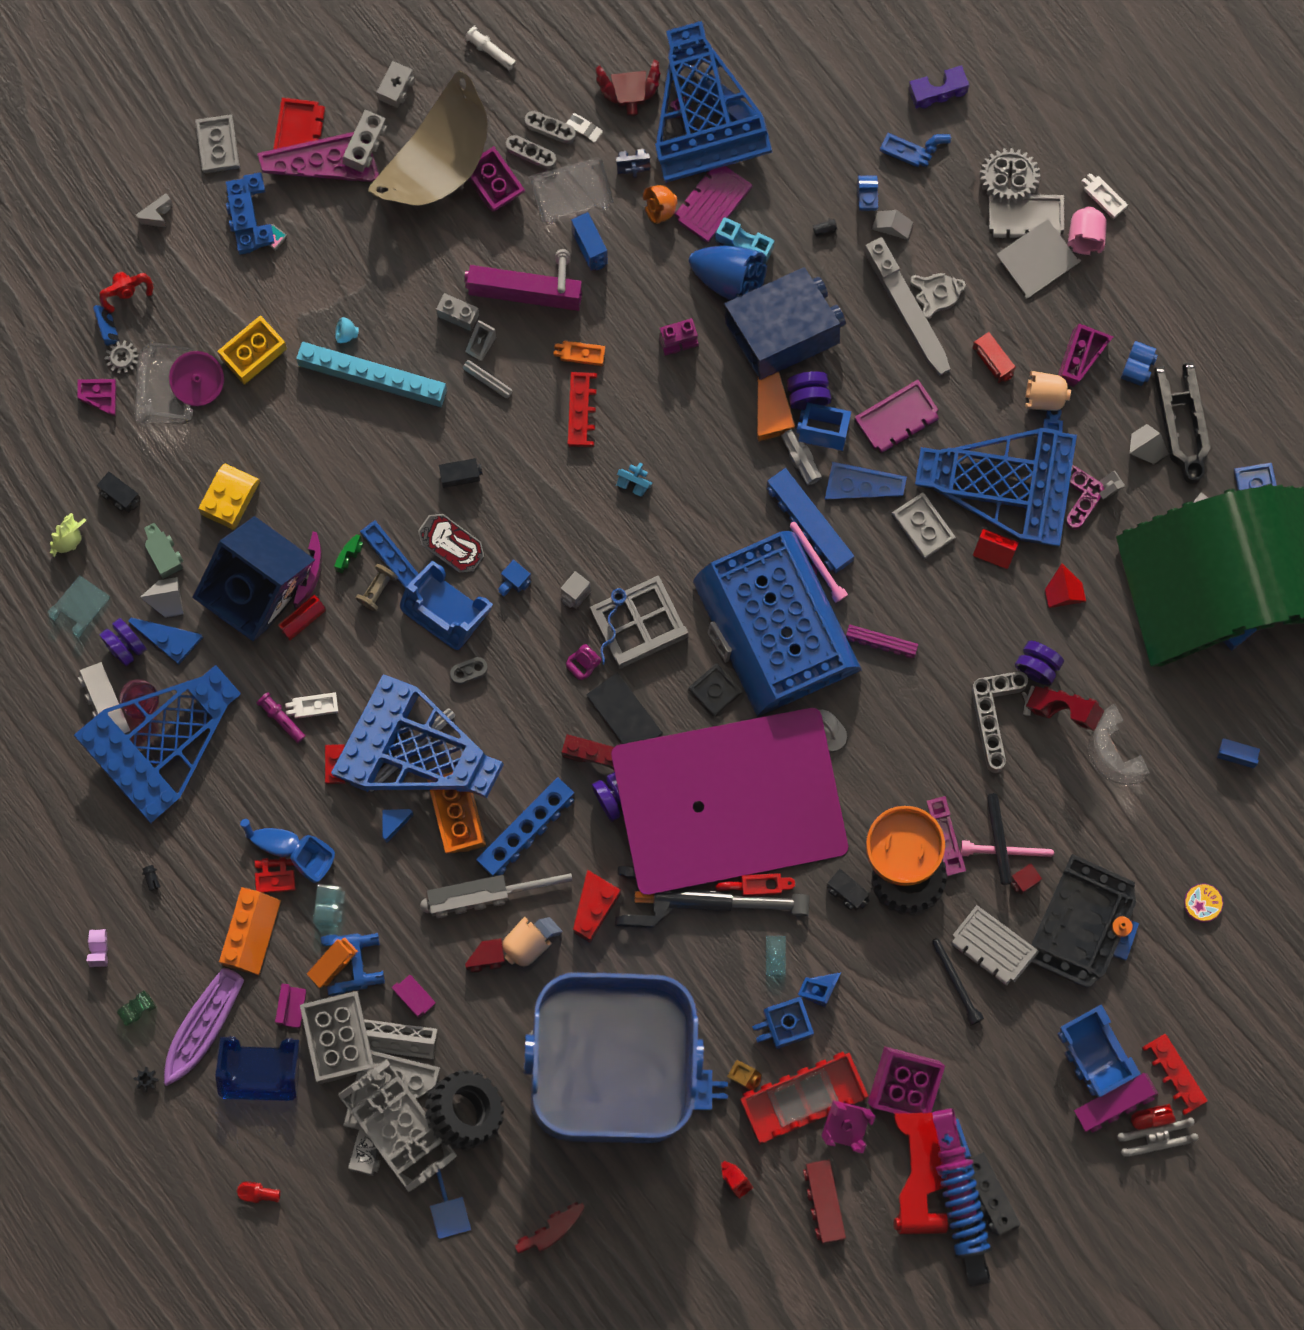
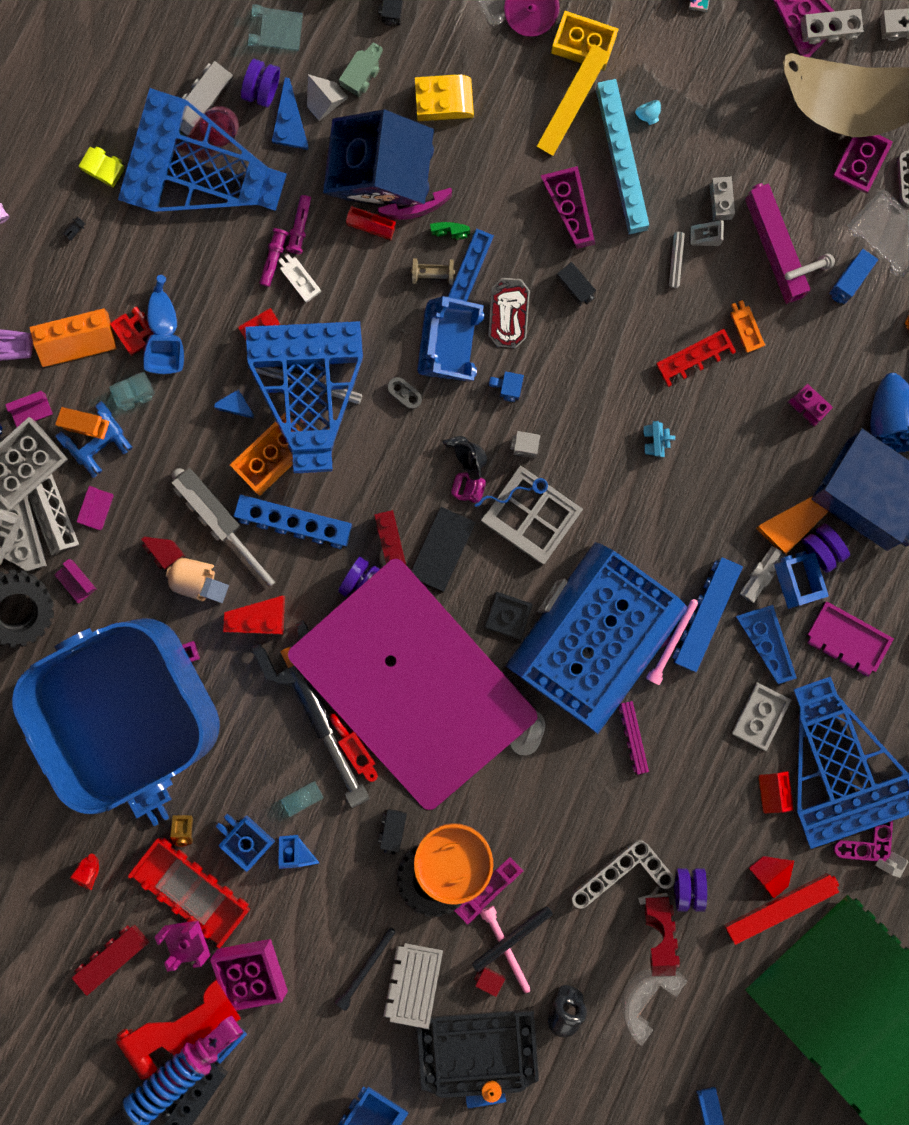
camera: 60 degrees right, 10 degrees up
(111, 822) = (101, 166): none -> neon yellow brick
(273, 685) = (297, 233): none -> magenta pin
(298, 387) = (573, 99): none -> yellow tile
(383, 438) = (569, 199): none -> magenta wedge
(468, 1050) = (75, 581): none -> magenta panel
(556, 644) = (469, 454): none -> black hair
(1094, 832) = (561, 1022): none -> black piece
(1097, 597) = (782, 908): none -> red brick

